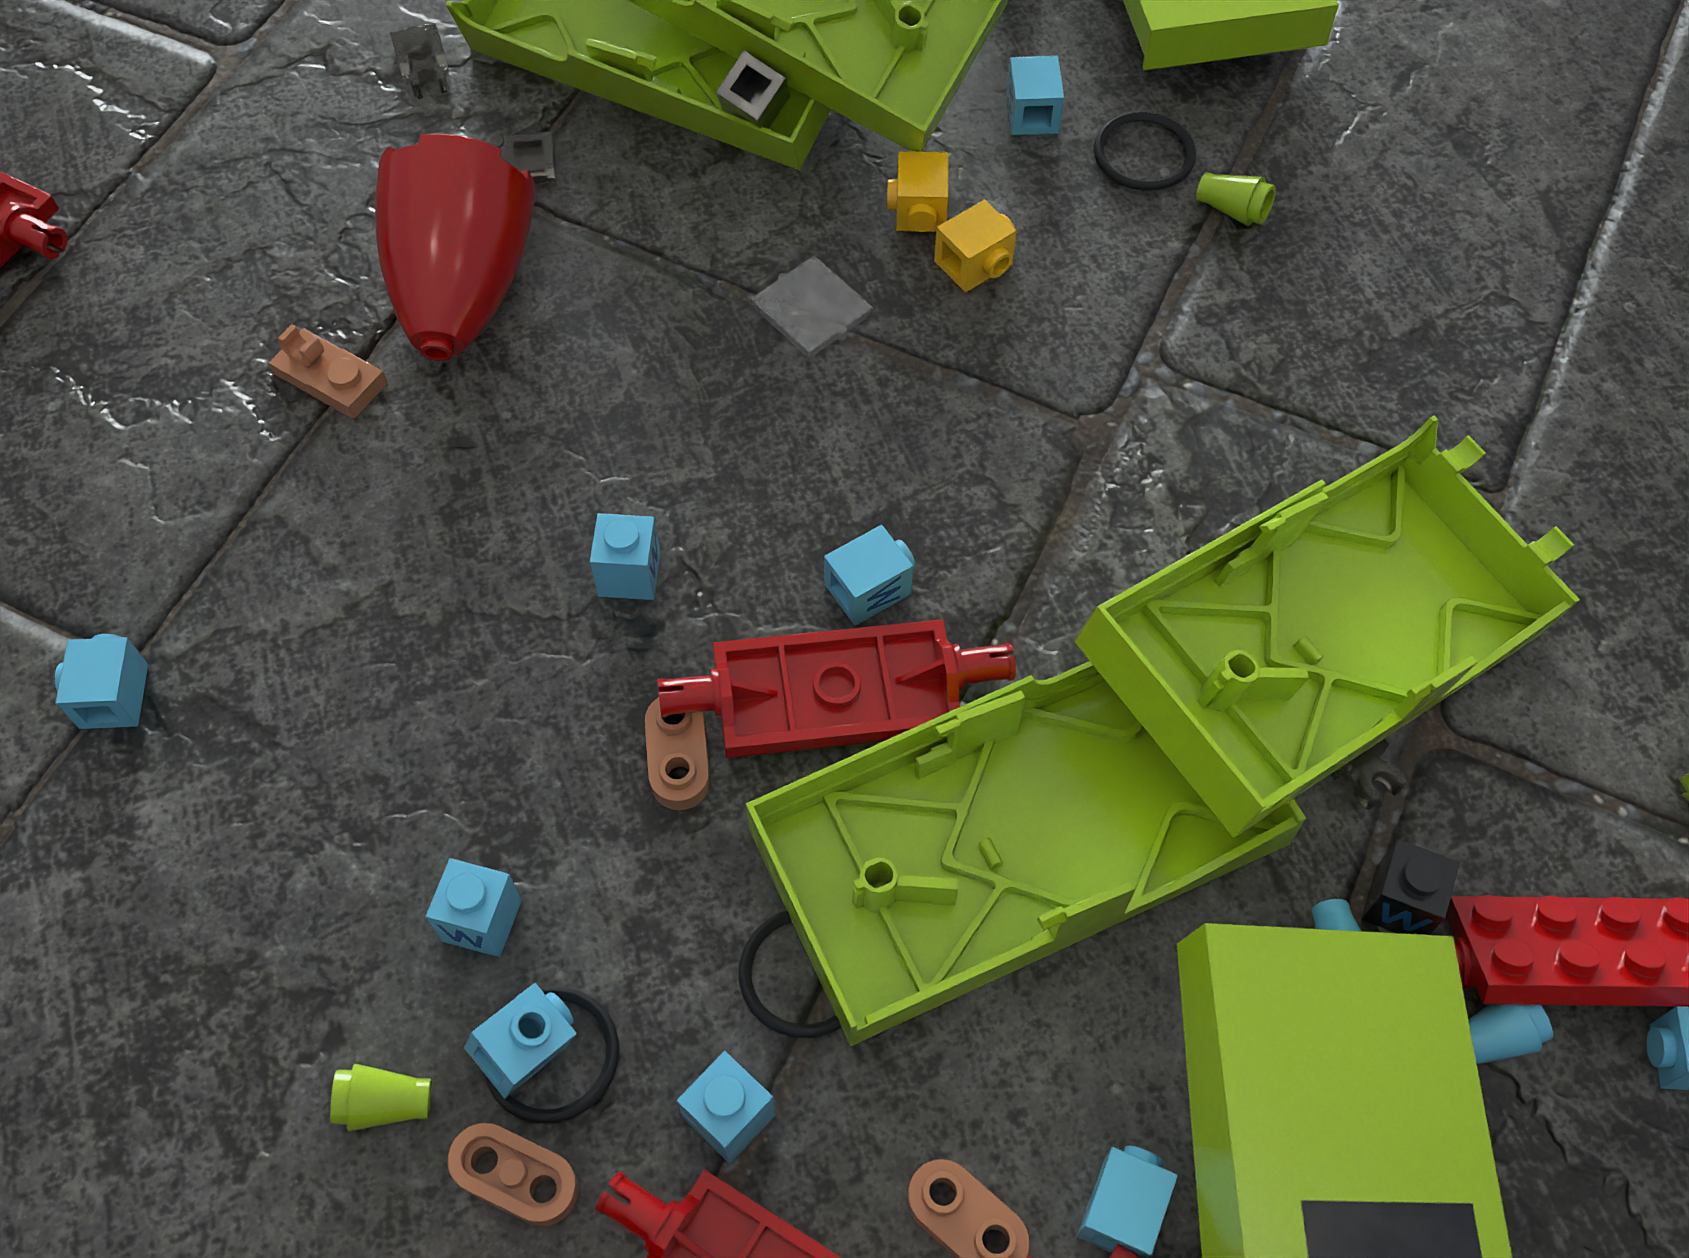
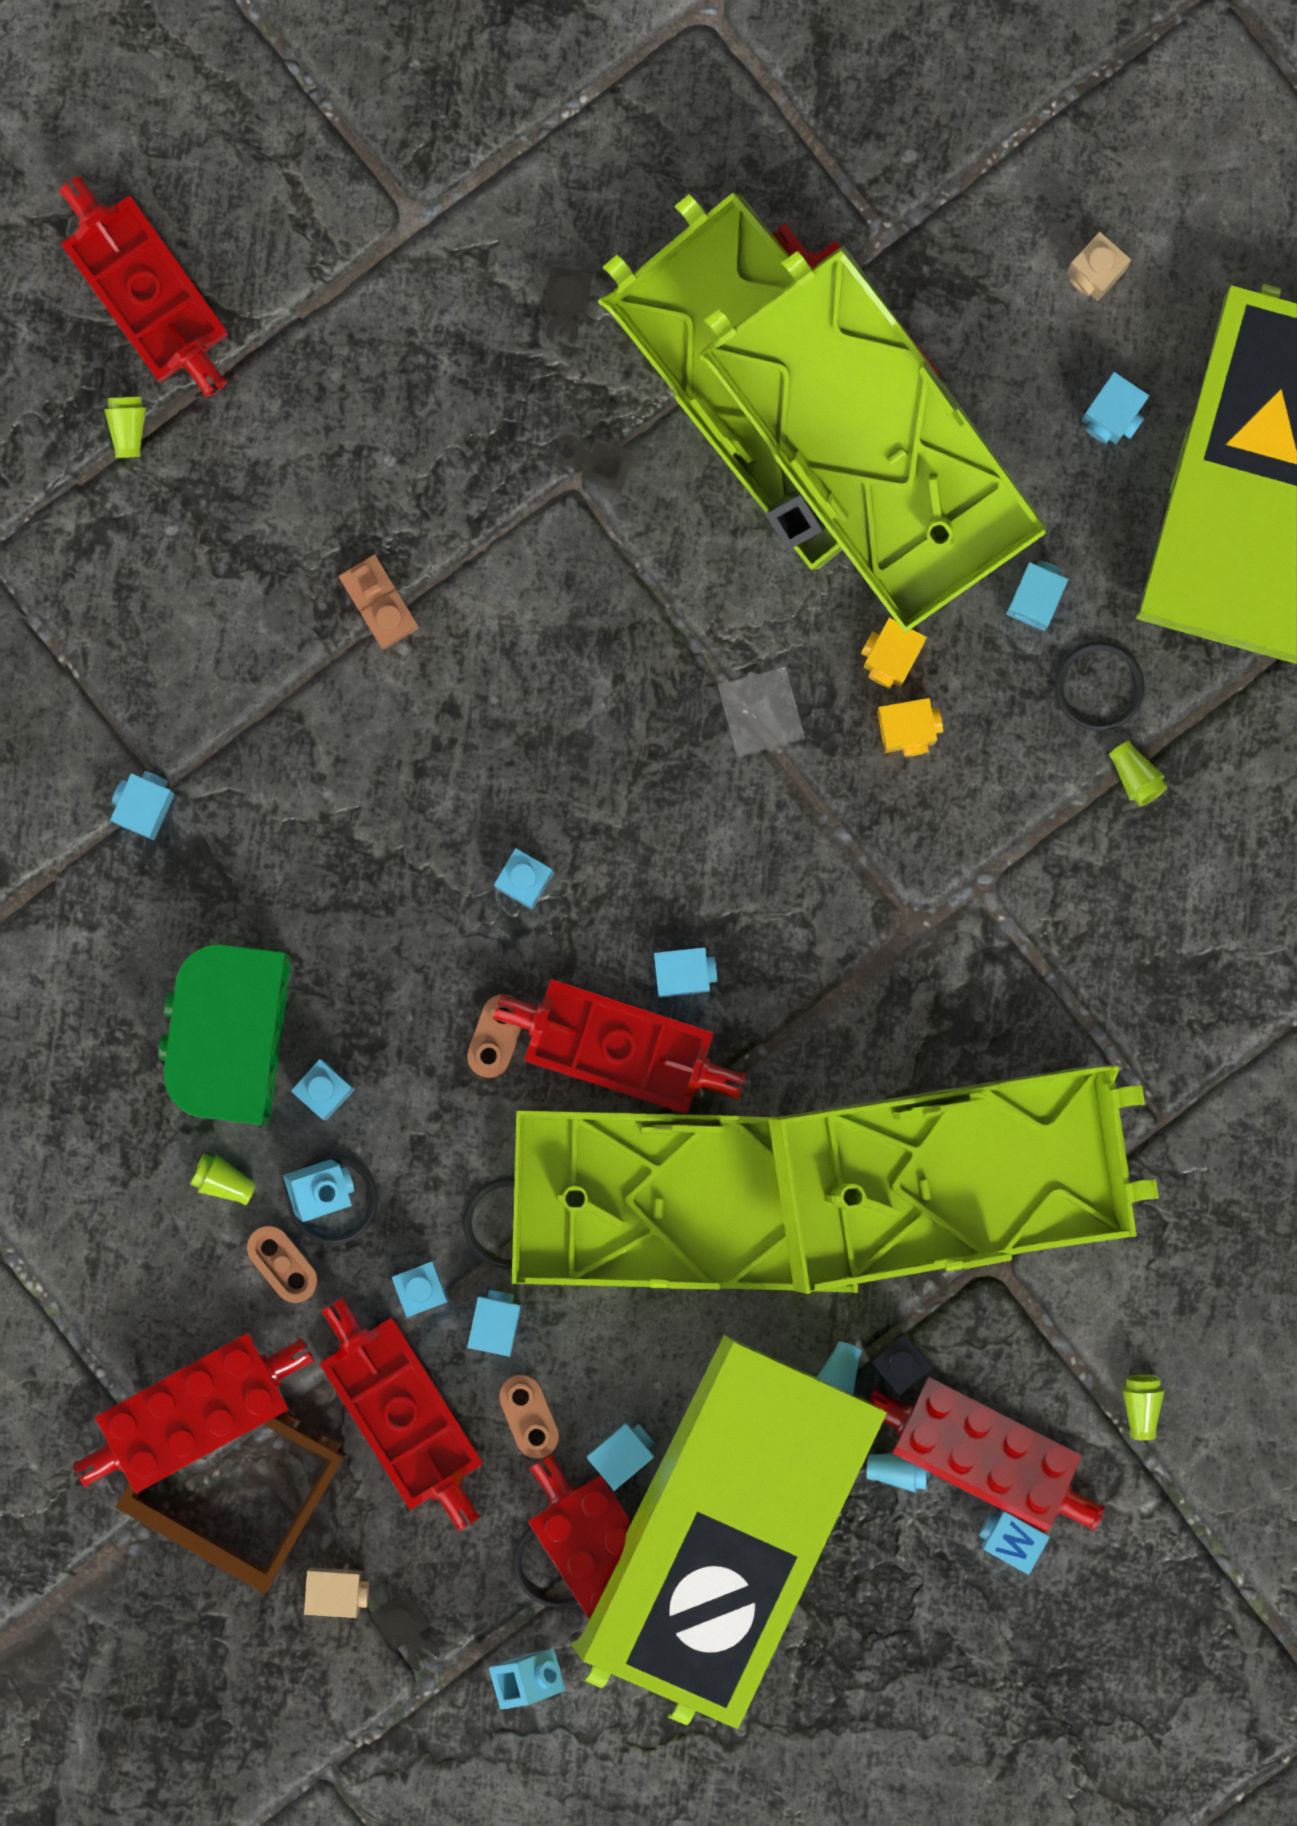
camera: 30 degrees right, 25 degrees up
(305, 888) = (226, 1033): none -> green brick
(449, 237) = (504, 556): red cylinder -> none
(855, 1107) = (495, 1323): none -> medium azure brick

